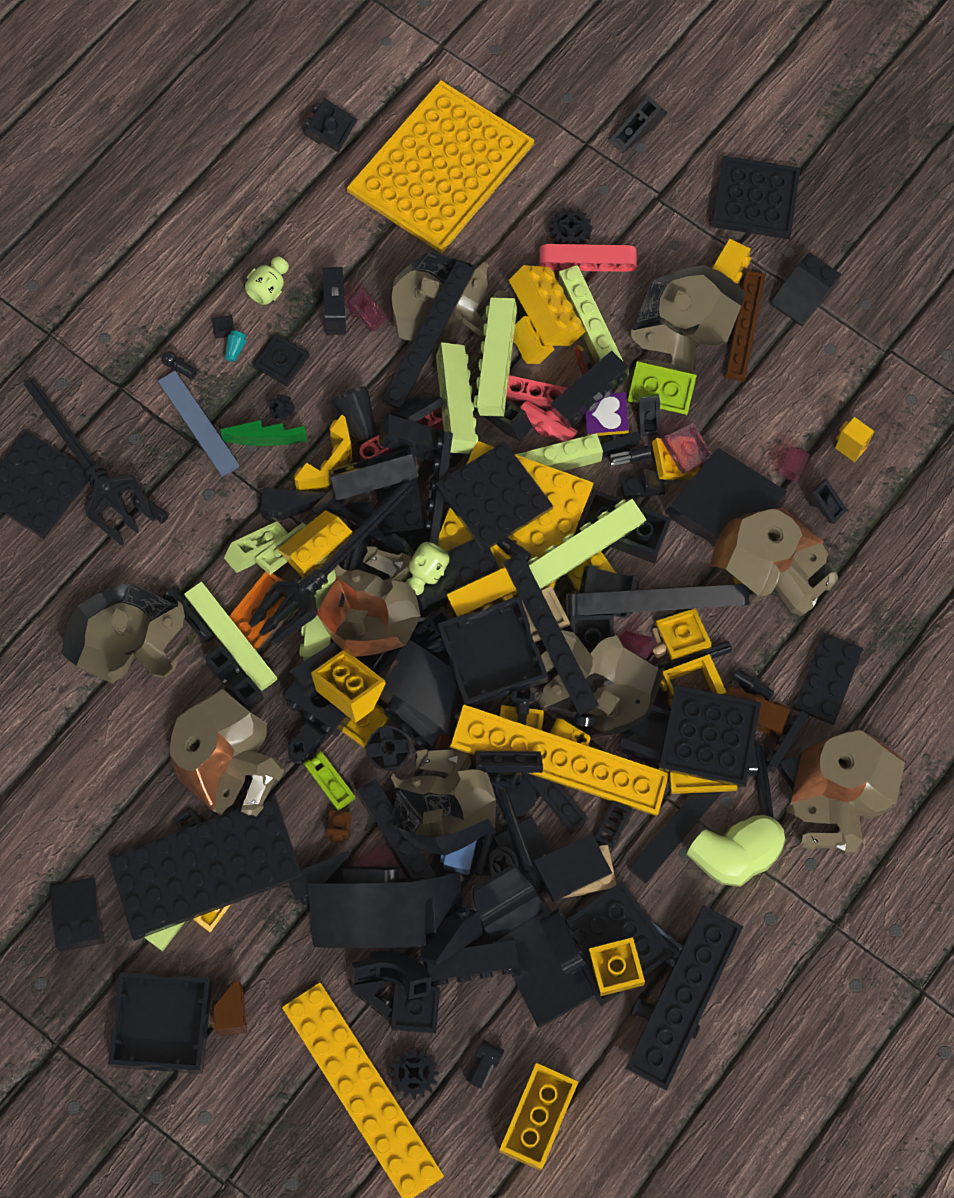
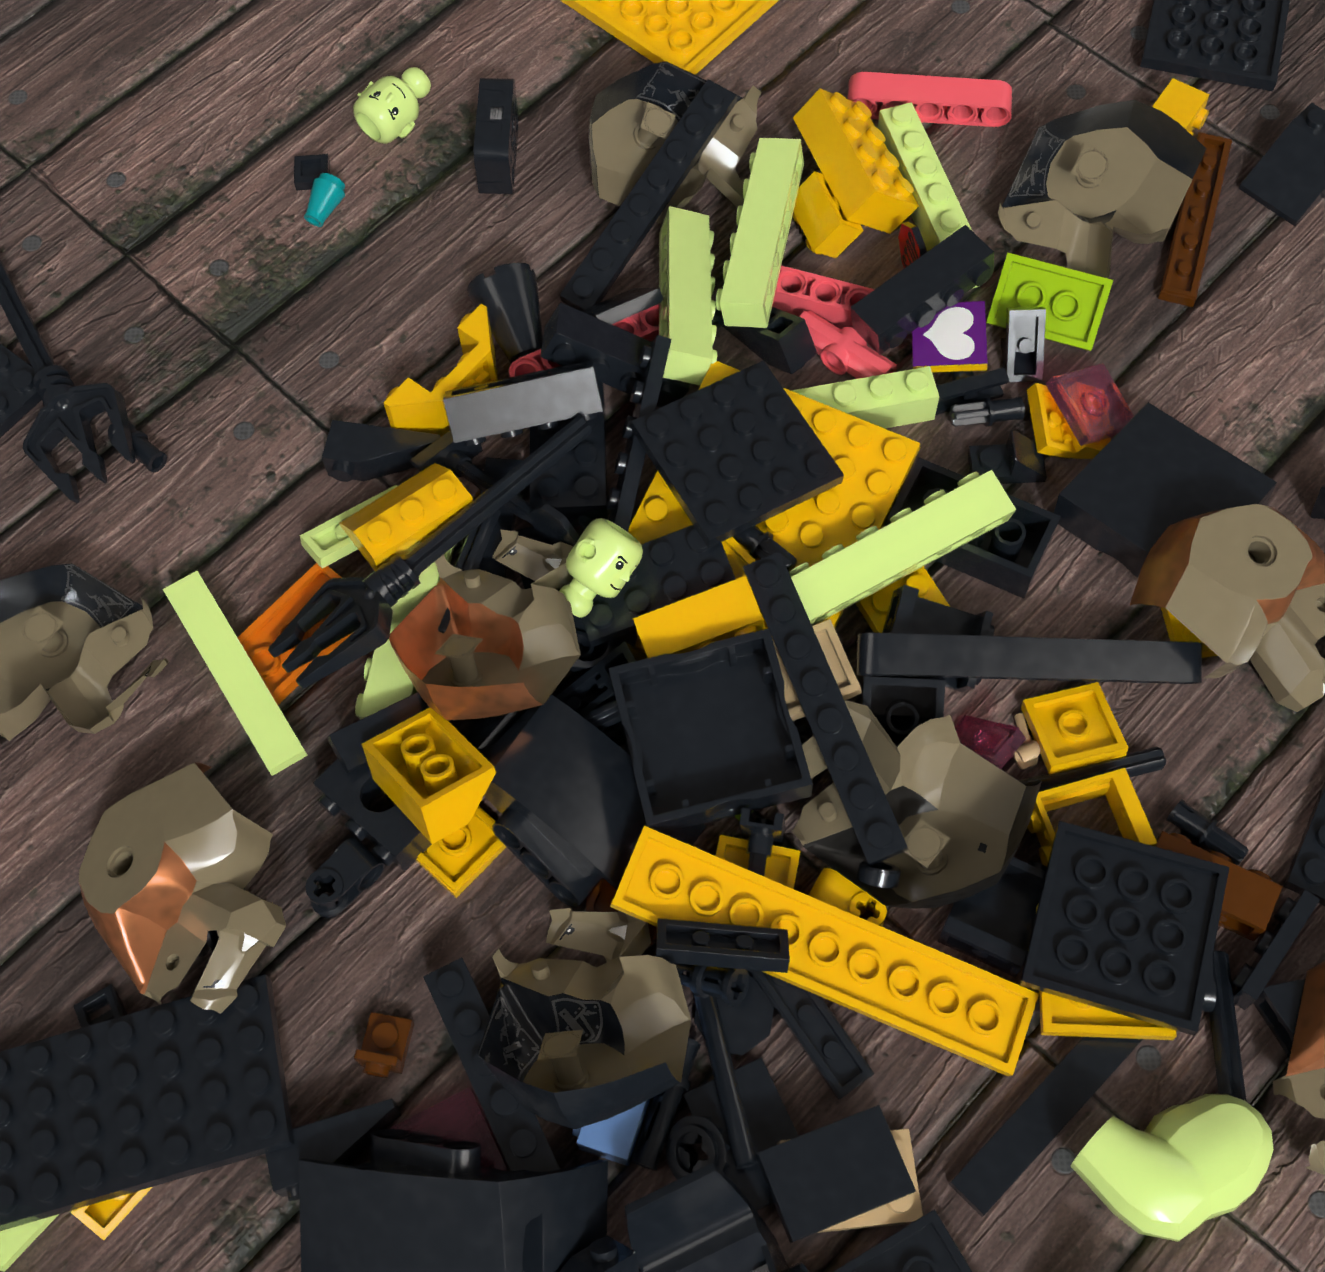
camera: 10 degrees right, 5 degrees down
(170, 359) = (226, 223): black pin -> none
(190, 616) = (169, 627): black pin -> none
(198, 424) = (245, 318): sand blue tile -> none
(229, 674) = (227, 747): black arch -> none
(243, 551) = (280, 522): yellowish green slope -> none
(255, 435) = (337, 338): green slope -> none
(281, 360) = (399, 227): black tile -> none
(281, 407) = (386, 296): black gear -> none
(329, 781) = (379, 955): lime plate -> none
(366, 309) = (546, 149): clear pink slope -> none
(397, 757) = (476, 883): black cylinder -> none
(570, 227) = (903, 51): black gear -> none
(611, 843) = (903, 1118): black slope -> none
(794, 464) = (1284, 443): clear pink brick -> none

